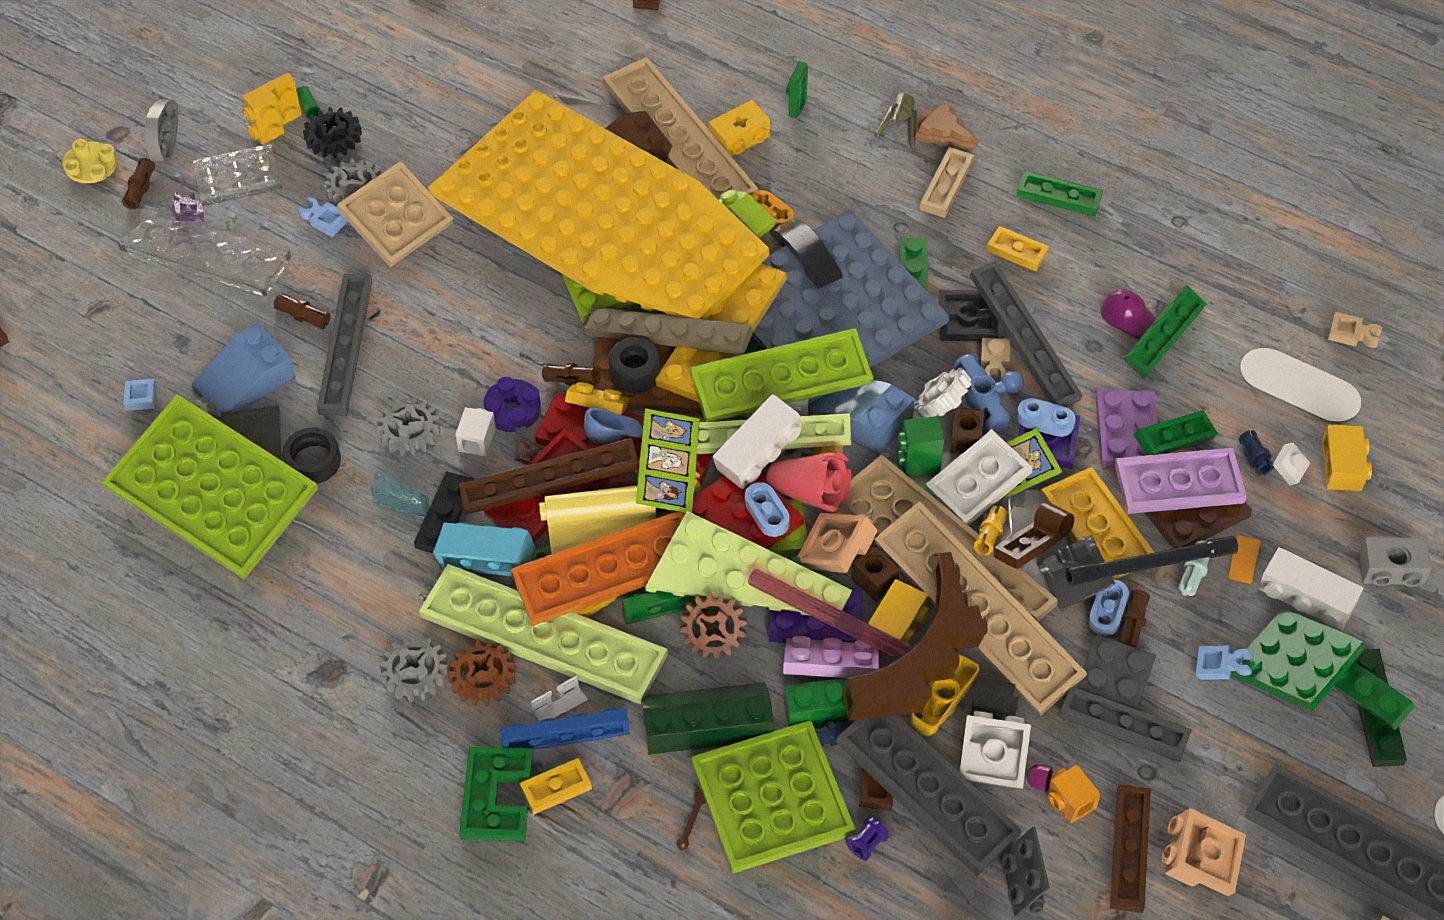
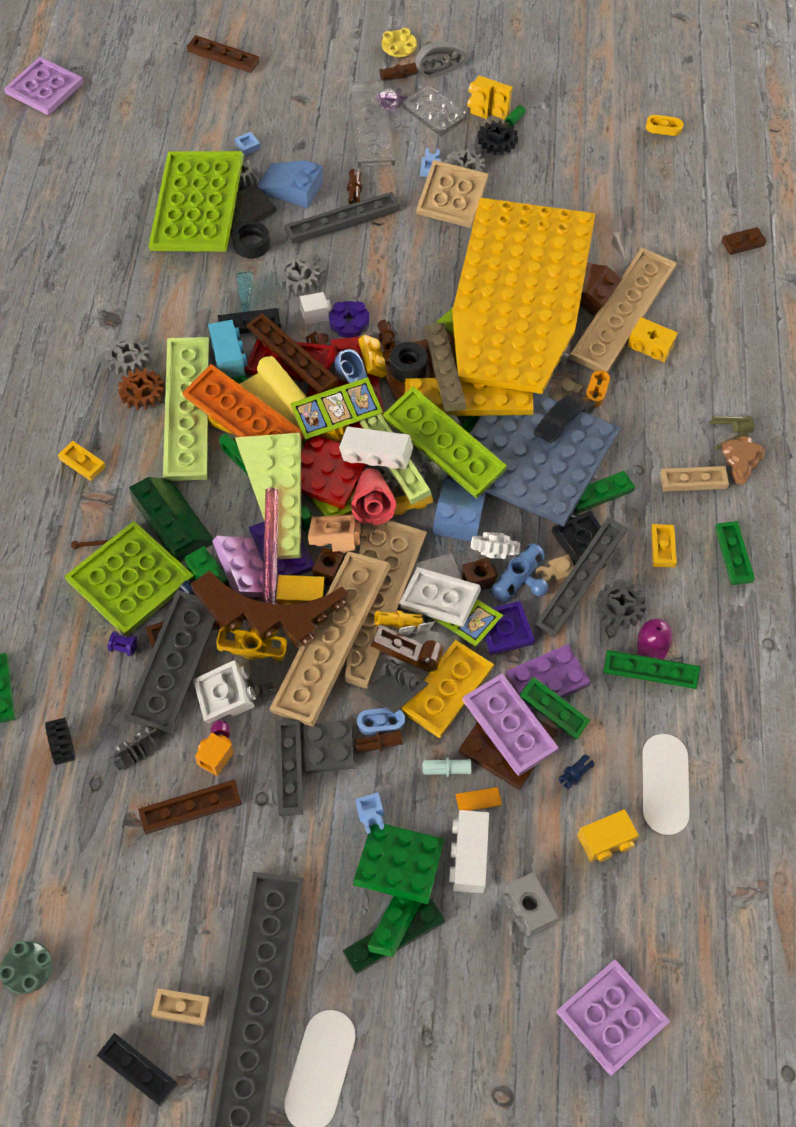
camera: 60 degrees right, 5 degrees up
(480, 813) = (73, 421): green plate -> none
(563, 705) = (140, 439): white piece -> none
(567, 731) = (118, 444): blue plate -> none
(705, 635) = (233, 490): dark orange gear -> none
(748, 211) = (574, 369): lime slope -> none
(767, 512) = (328, 478): light blue plate -> none
(797, 89) = (706, 354): green plate -> none
(920, 446) = (440, 548): green brick -> none
(1046, 417) = (515, 616): light blue plate -> none
(1071, 319) = (610, 602): none -> dark grey gear
(1092, 572) = (462, 767): black piece -> none
(1203, 852) = (206, 856): light nougat plate -> none
(1291, 463) = (579, 799): white plate -> none
(1349, 331) = (737, 797): tan plate -> none

